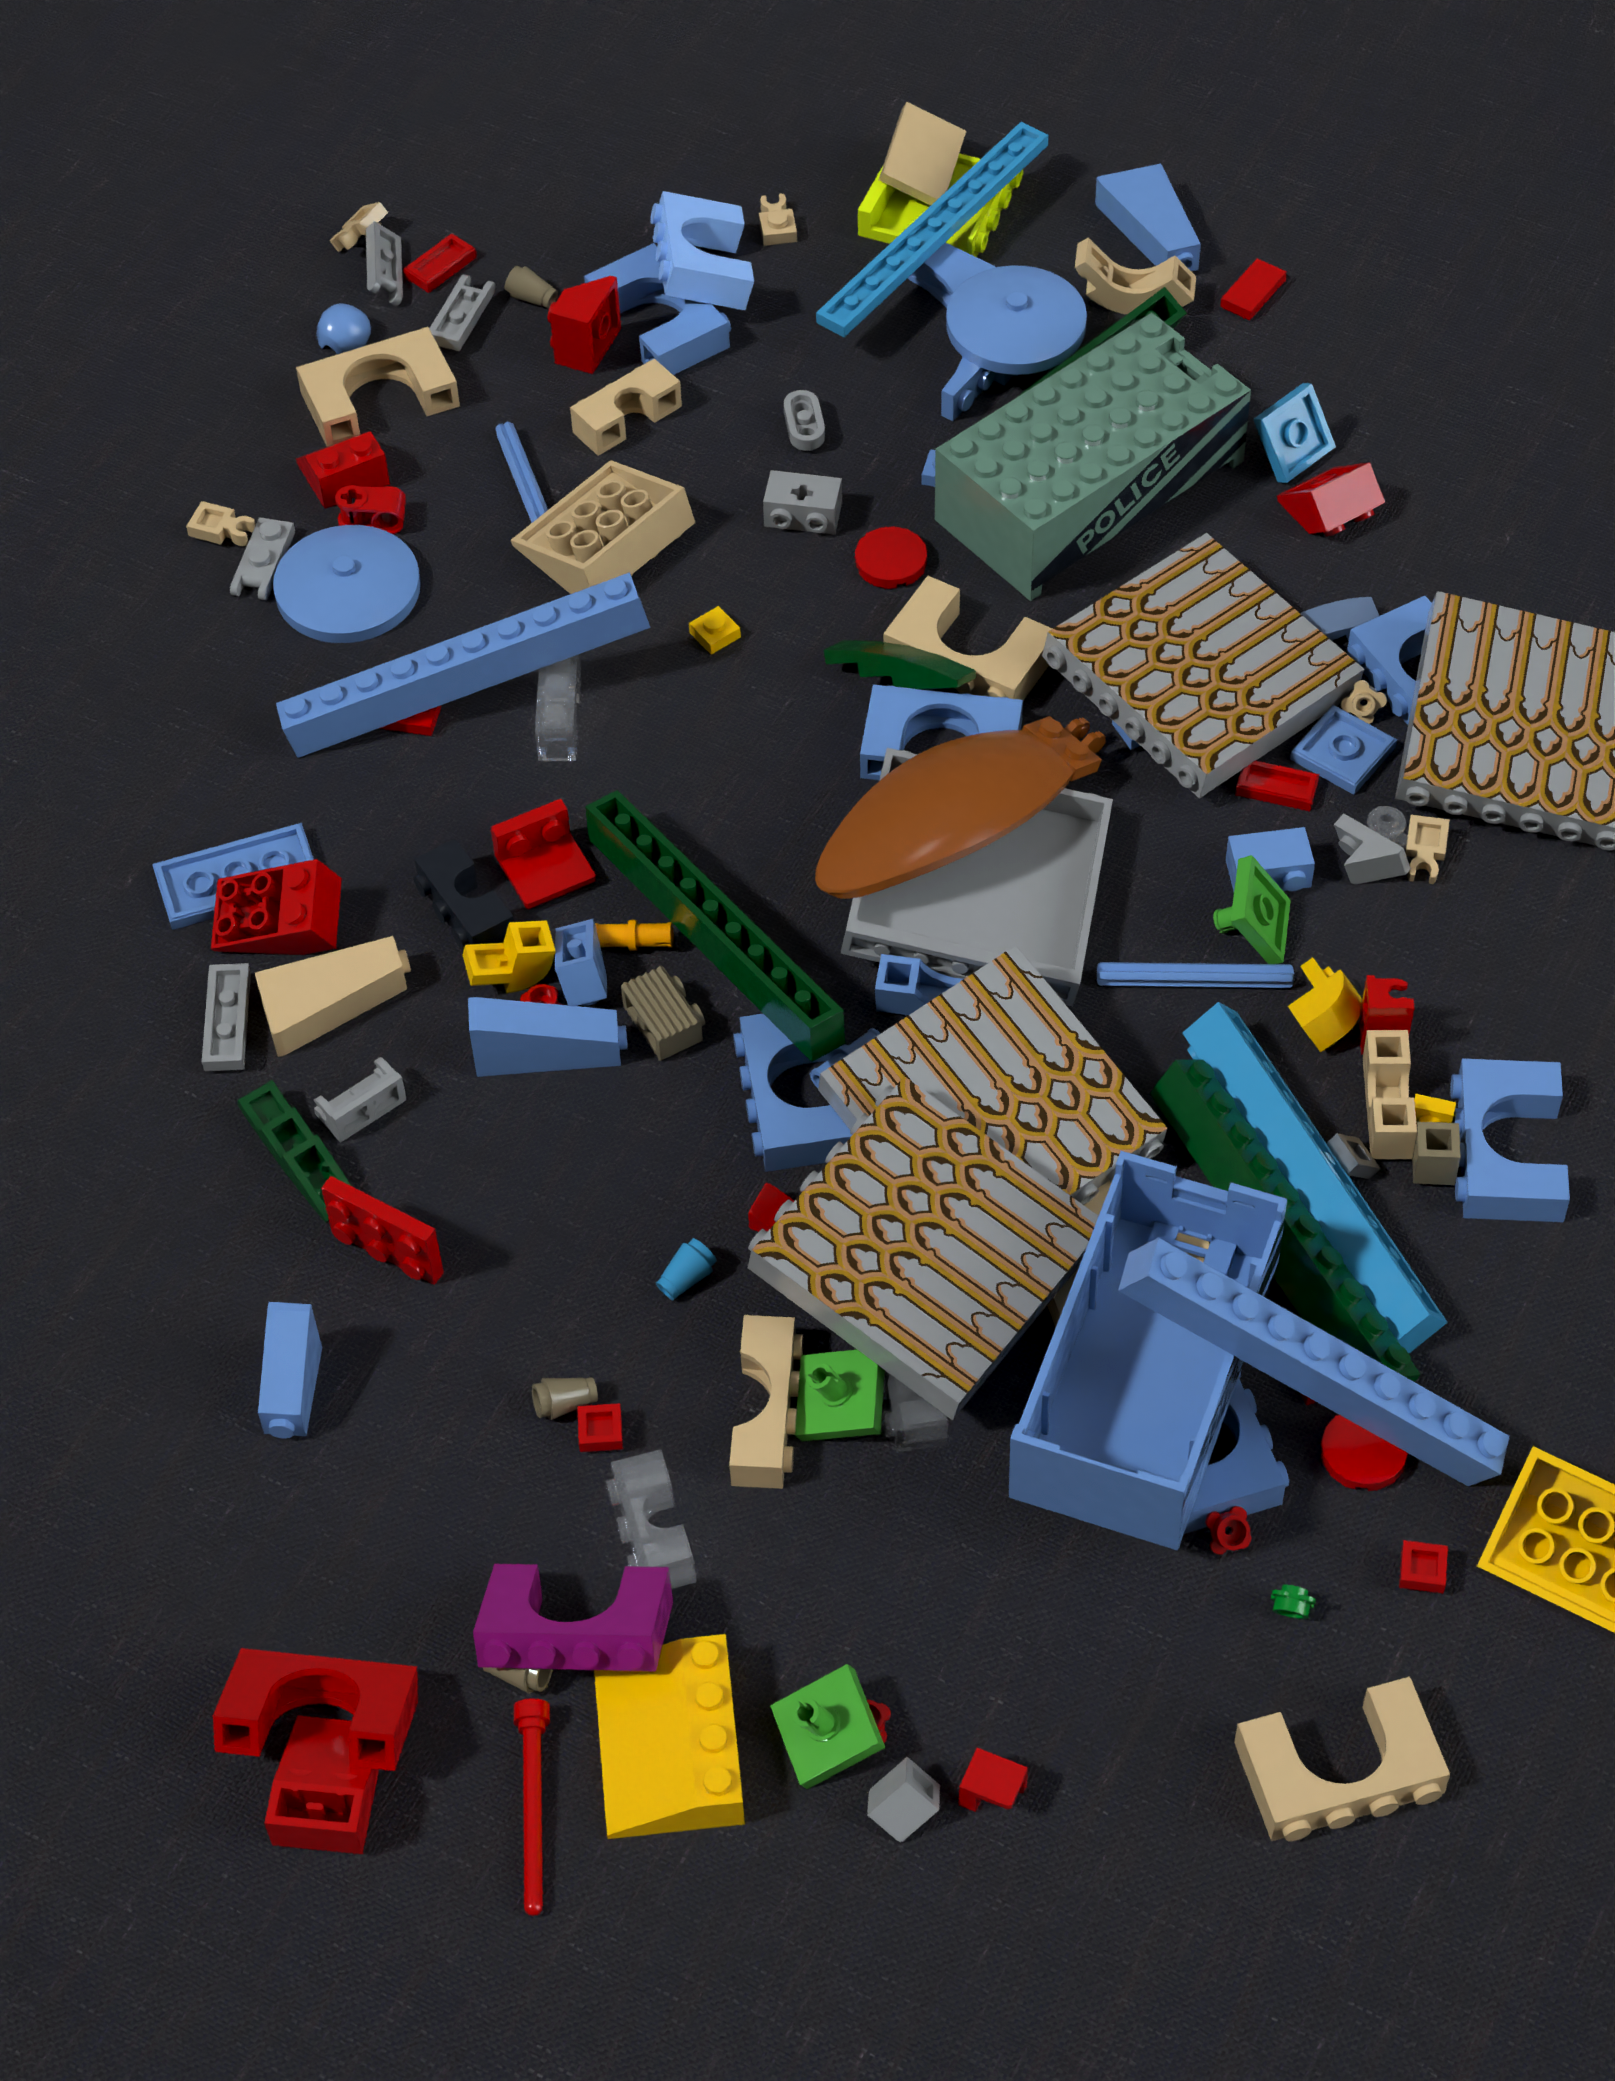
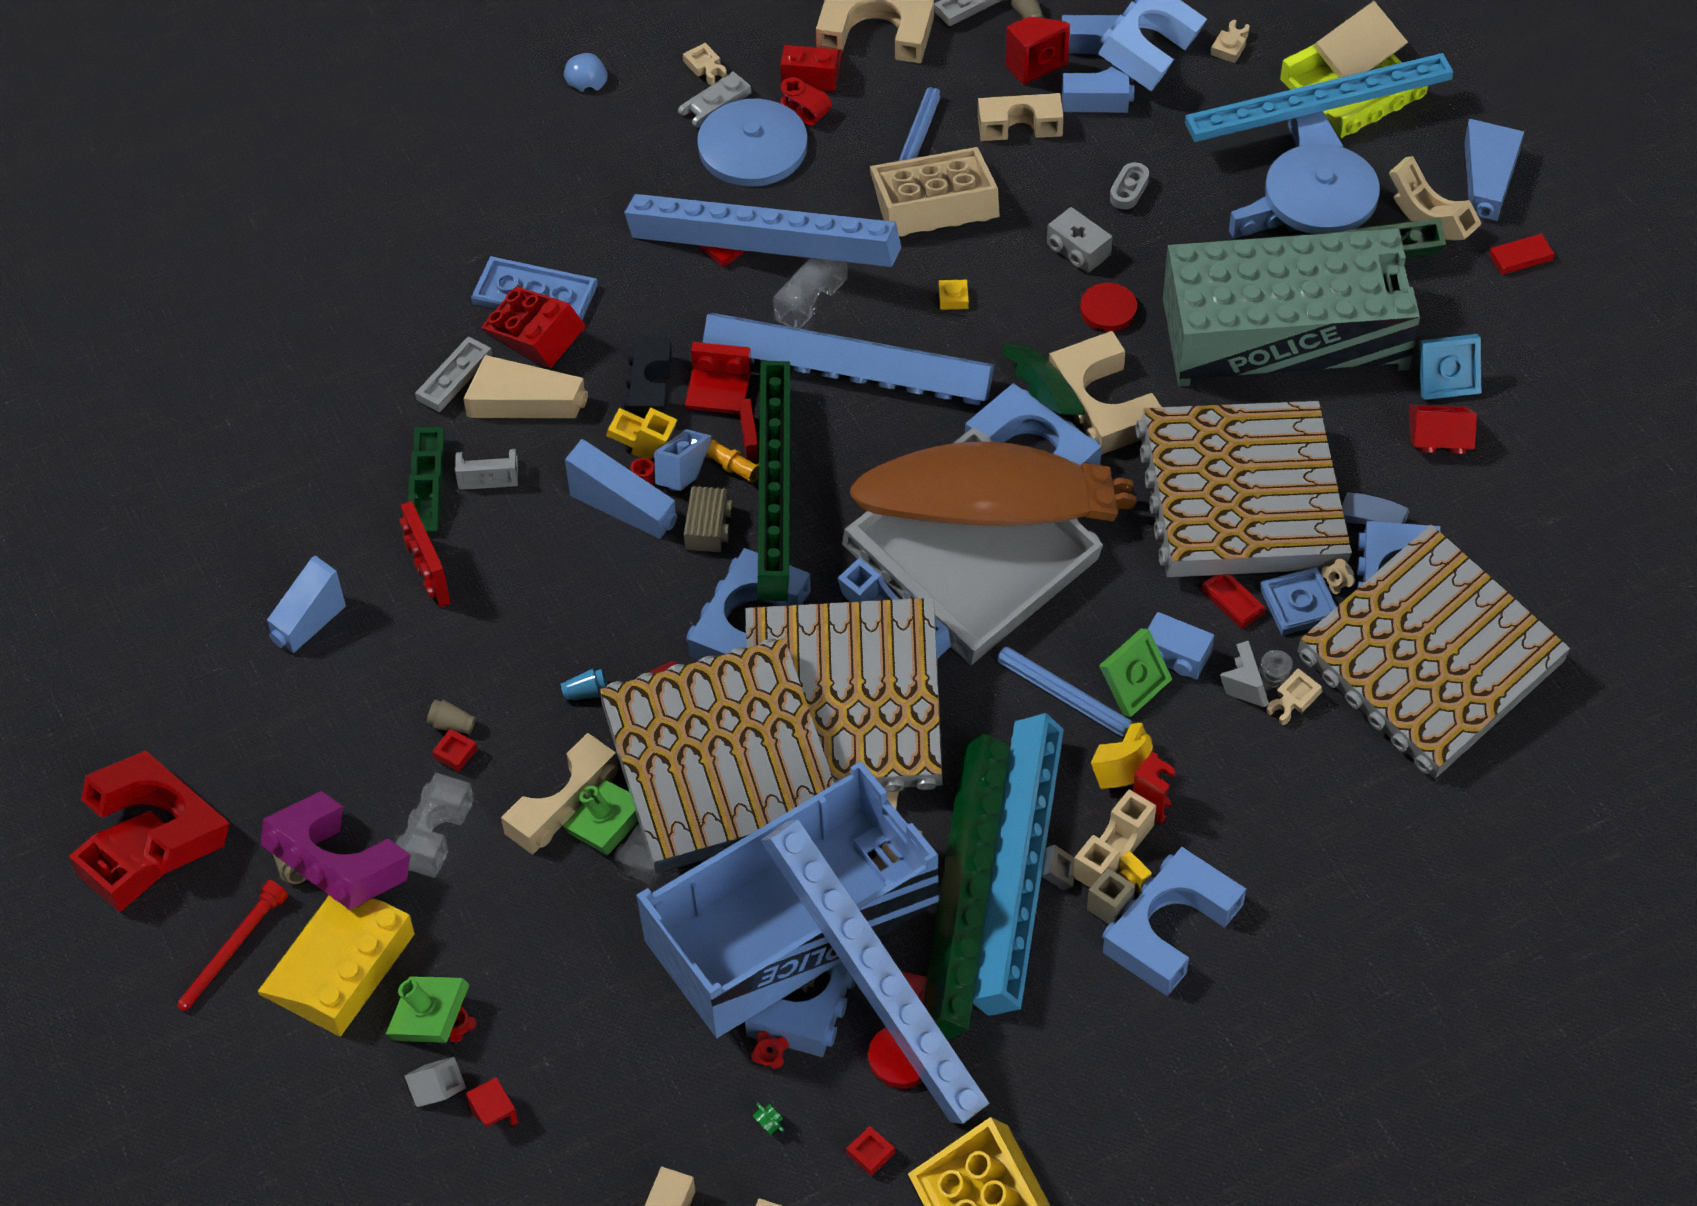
camera: 35 degrees right, 0 degrees up
(83, 604) = (585, 71): none -> medium blue hair
(624, 891) = (748, 430): none -> red tile
(674, 751) = (854, 358): none -> medium blue brick

